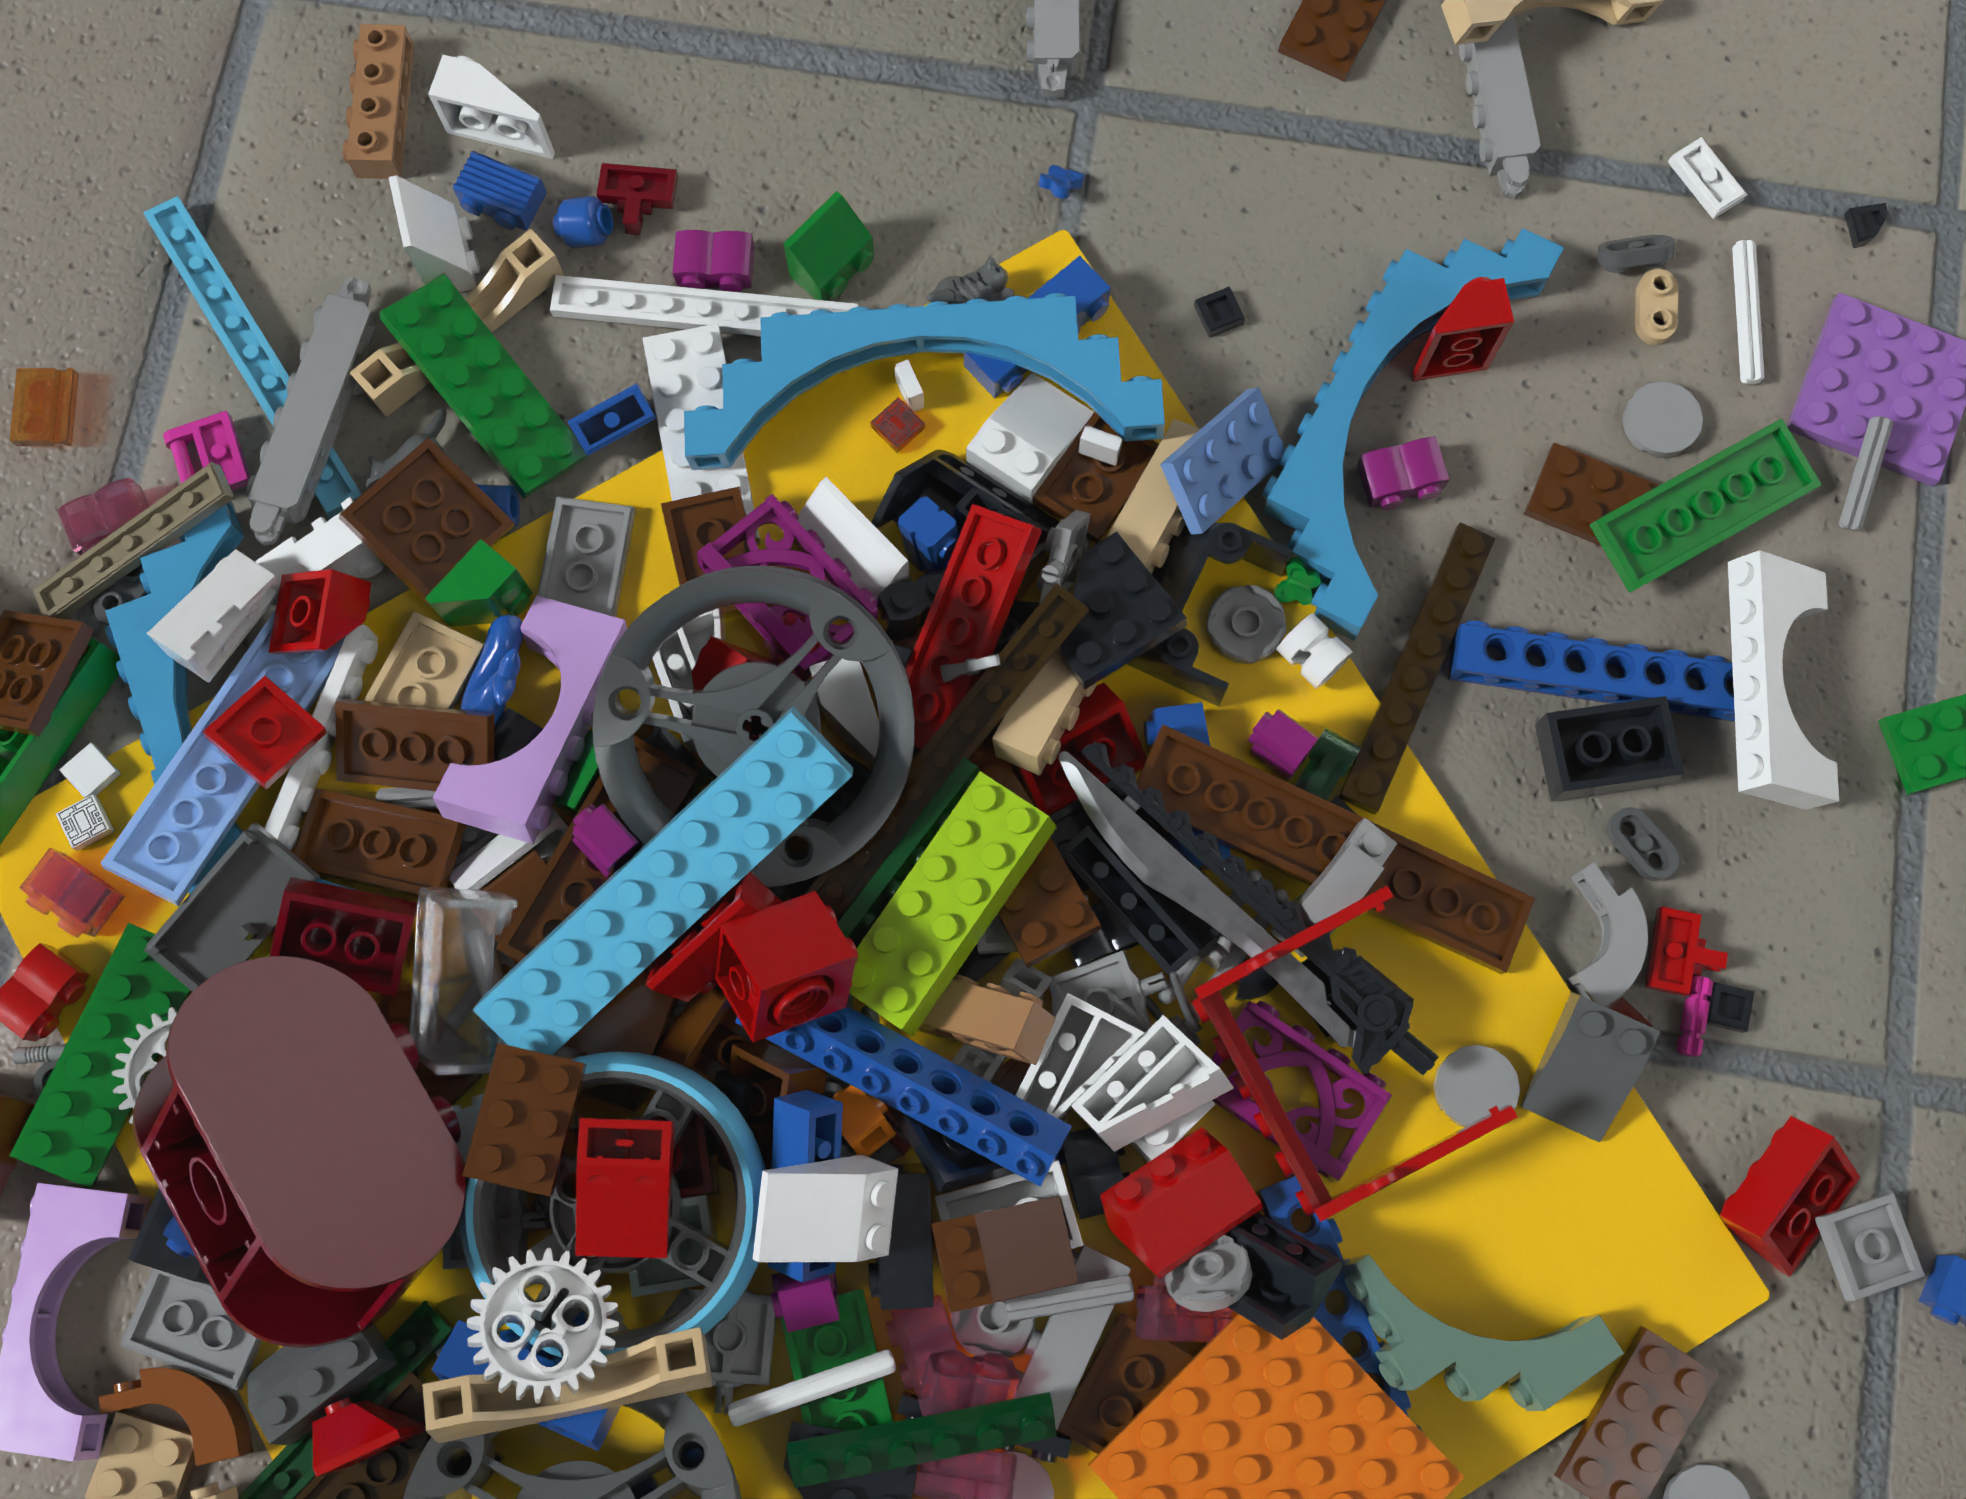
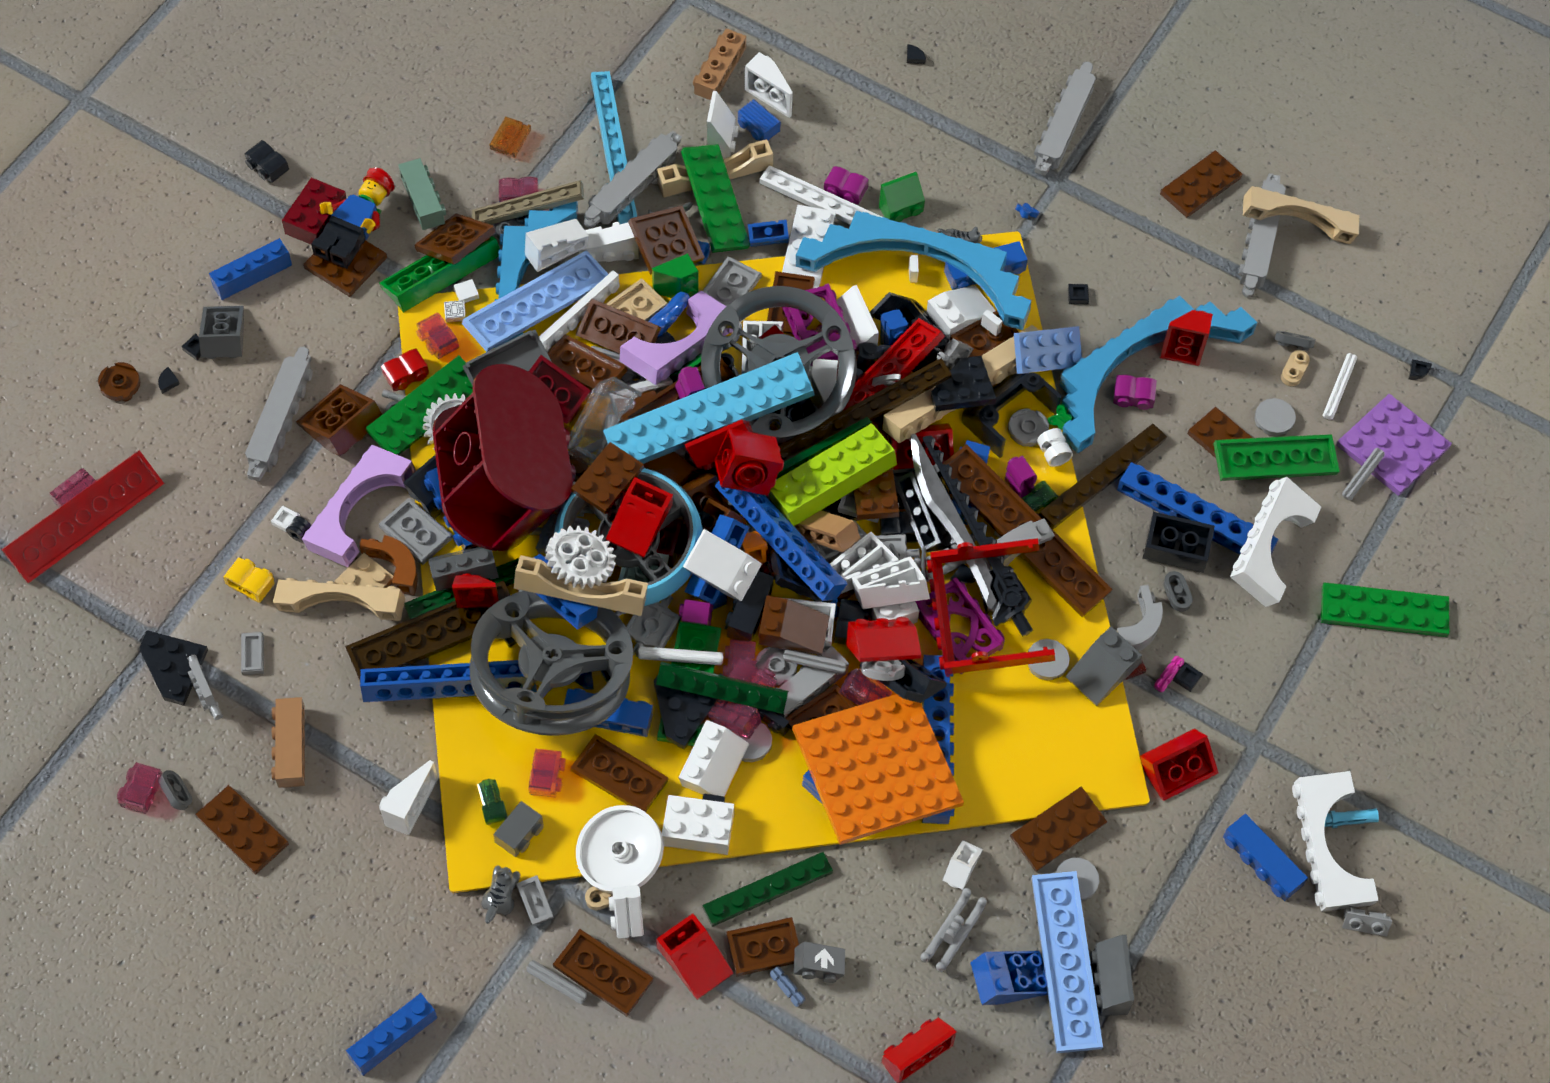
camera: 20 degrees right, 15 degrees down
(215, 443) = (578, 173): dark pink plate -> none
(265, 732) = (555, 297): red plate -> none
(317, 610) = (601, 256): red slope -> none
(583, 222) = (792, 147): blue head -> none
(636, 191) = (822, 144): dark red hinge -> none
(897, 425) = (901, 284): clear red tile -> none
(1474, 1366) = (991, 762): sand green arch -> none
(1679, 953) = (1174, 643): red hinge -> none
(1707, 178) = (1346, 321): white plate -> none
(1869, 1247) = (1207, 798): light grey plate -> none

